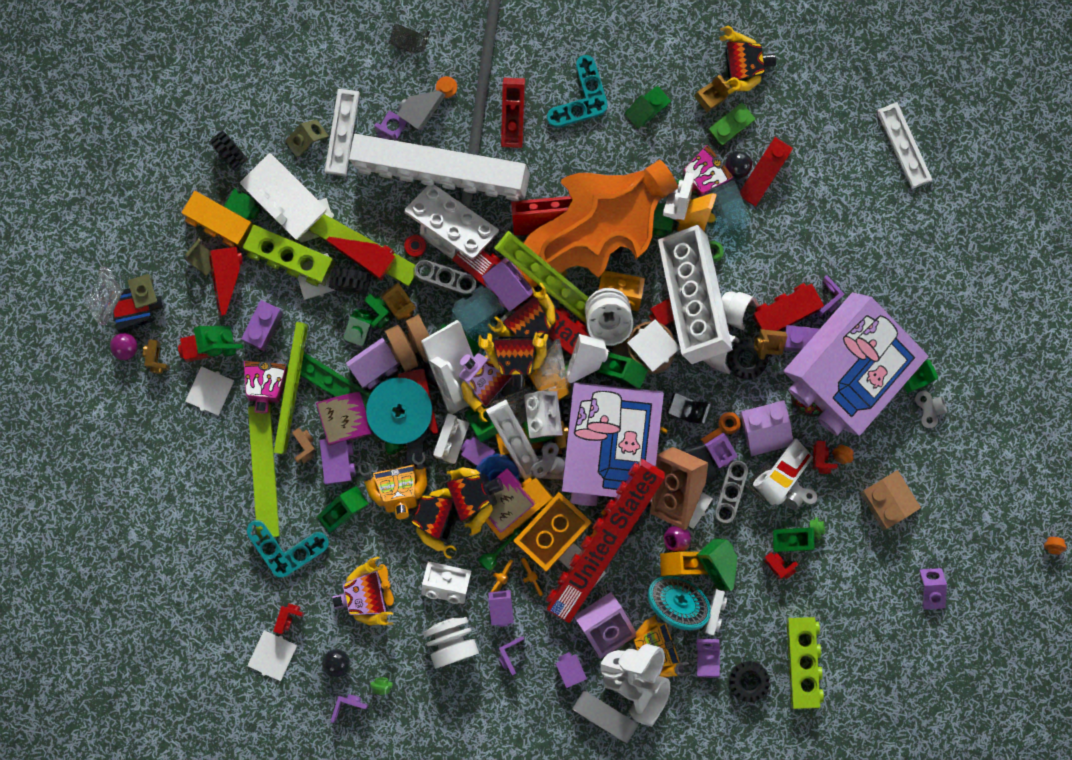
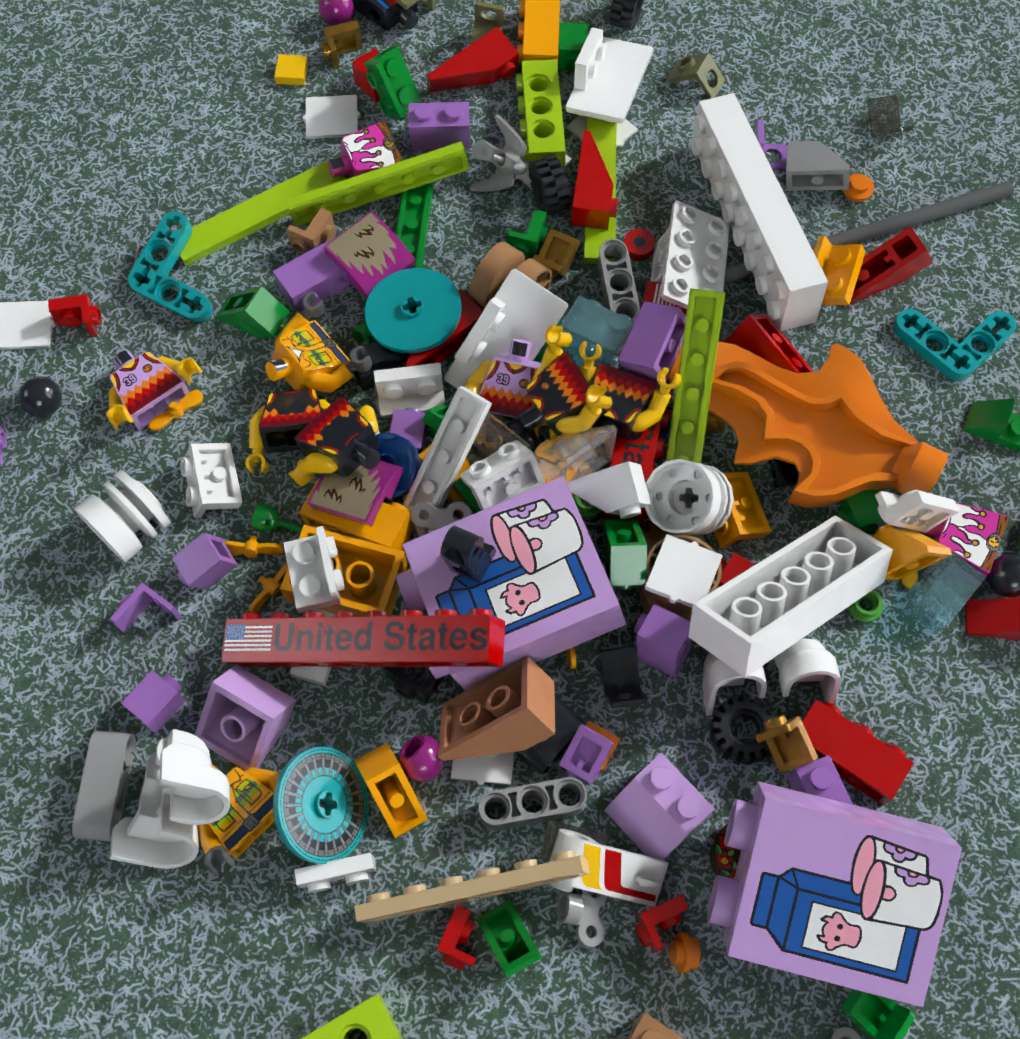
camera: 60 degrees right, 15 degrees down
(156, 400) = (291, 69): none -> yellow tile
(313, 297) = (506, 160): none -> light grey animal
(342, 132) = (753, 101): white tile -> none
(358, 327) = (495, 224): green bracket -> none
(373, 364) = (455, 249): lavender slope -> none
(381, 686) = (30, 464): bright green plate -> none
(501, 141) = (841, 267): none -> light orange bracket
(547, 547) = (312, 571): none -> white bracket
(594, 458) = (466, 553): none -> black leg
(681, 376) = (663, 640): none -> medium lavender brick
(708, 658) = (258, 899): medium lavender bracket -> none
(720, 563) = (416, 840): green slope -> none
(729, 416) = (639, 741): orange plate -> none
(735, 681) = (227, 978): black tyre -> none
(758, 554) = (487, 884): none -> tan plate
(819, 527) = (547, 970): bright green plate -> none
(833, 304) = (921, 814): medium lavender bracket -> none

